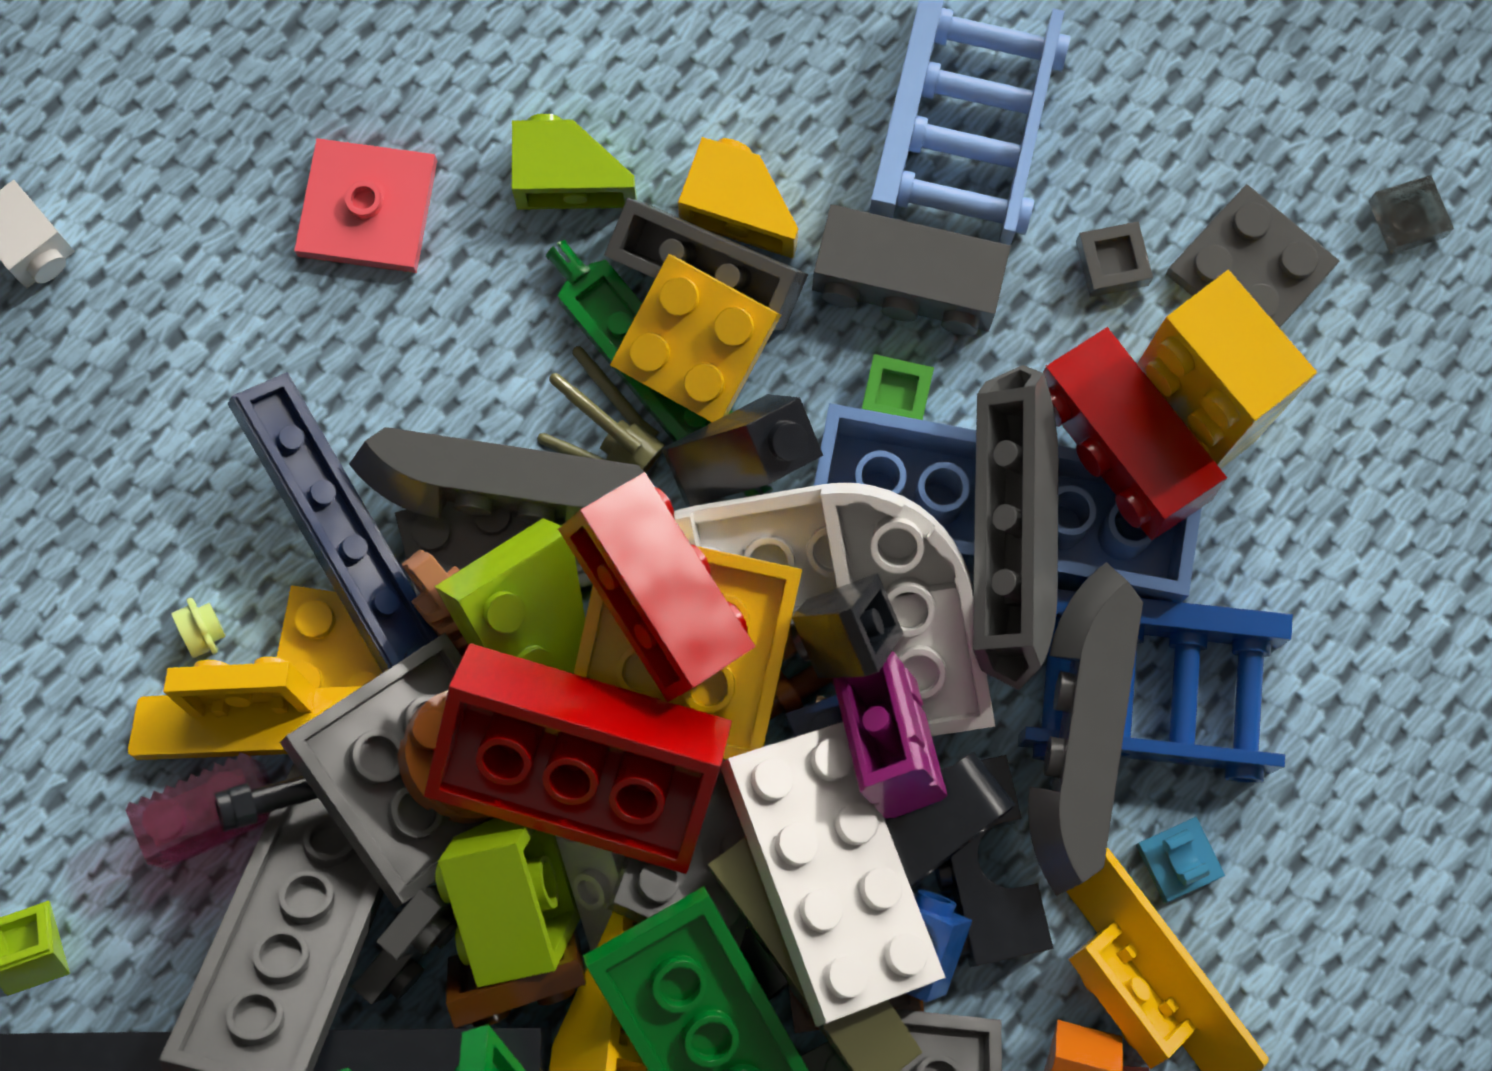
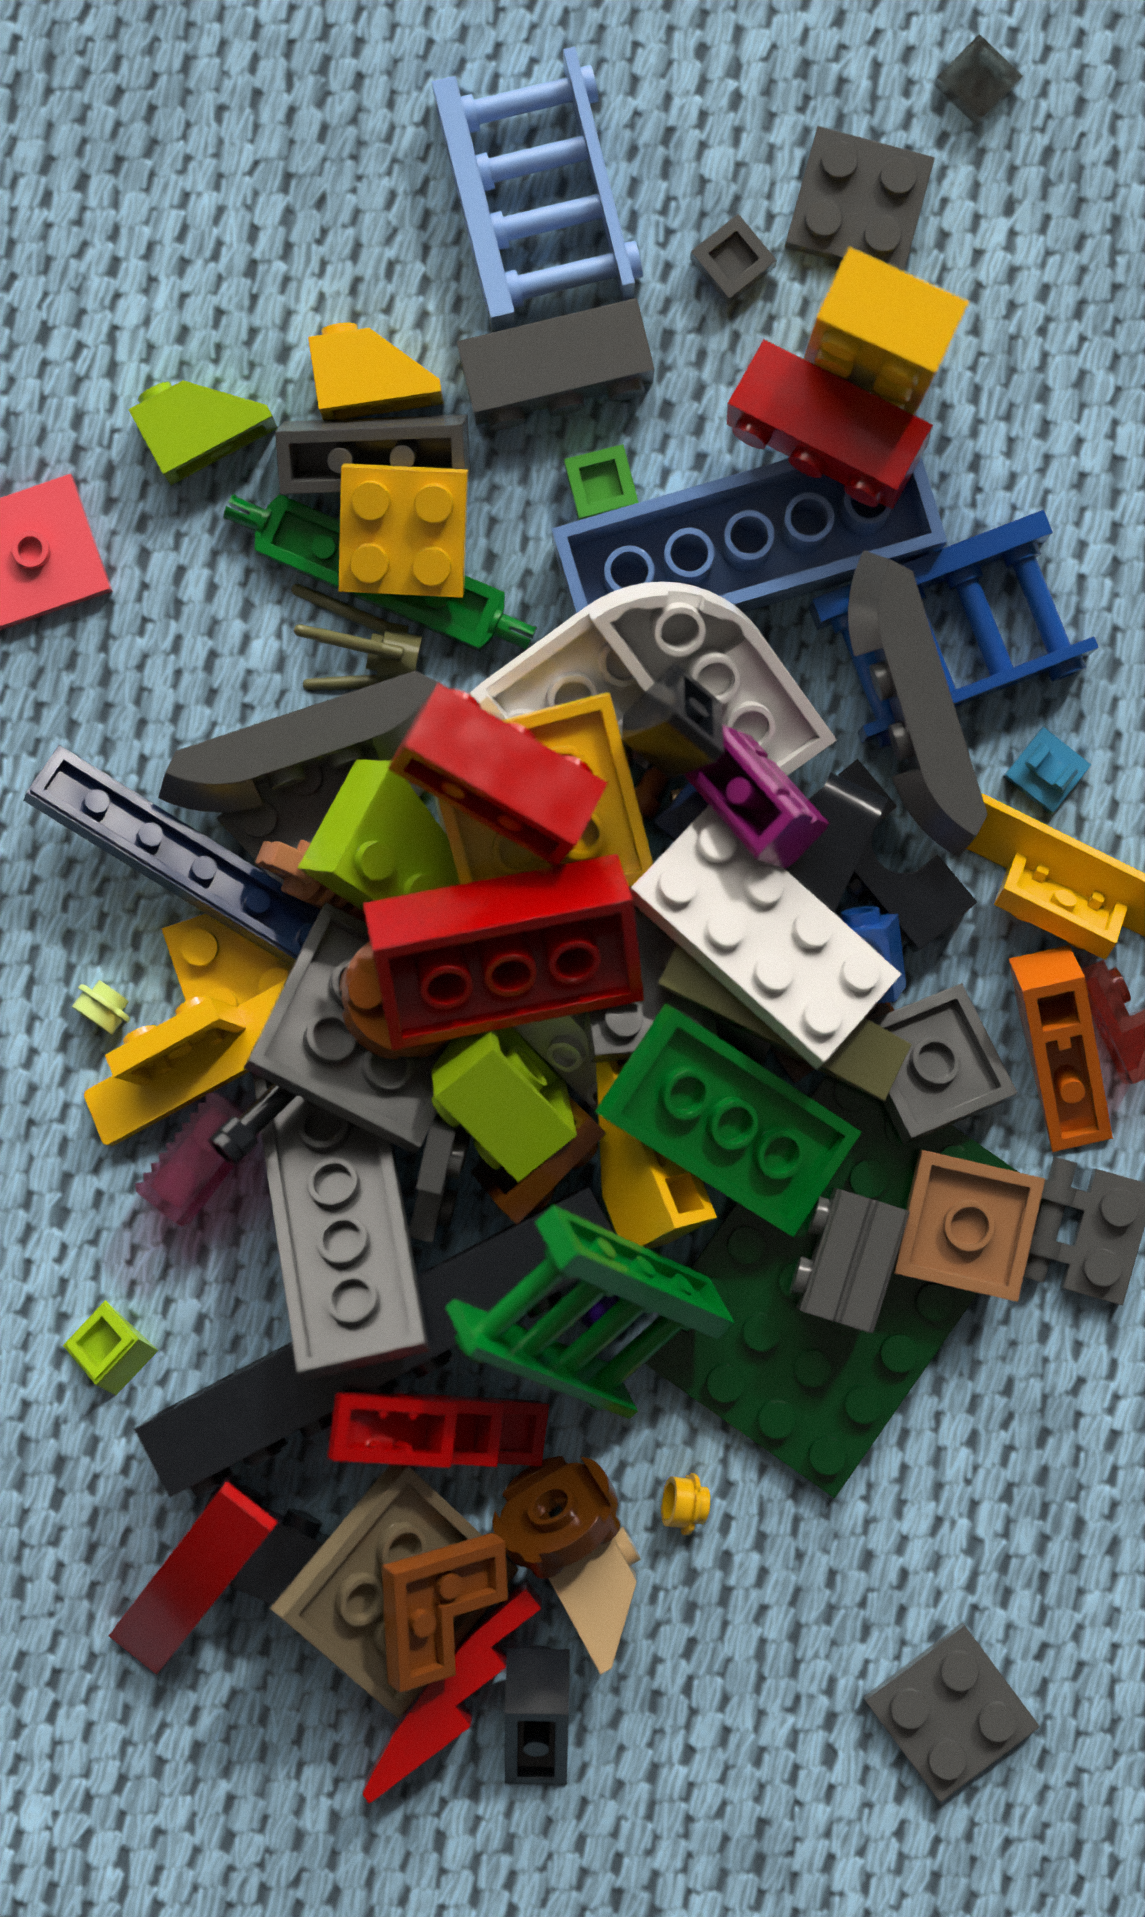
camera: 25 degrees left, 10 degrees up
(743, 450) = (498, 608): black slope -> none
(1015, 526) = (769, 556): dark grey brick -> none

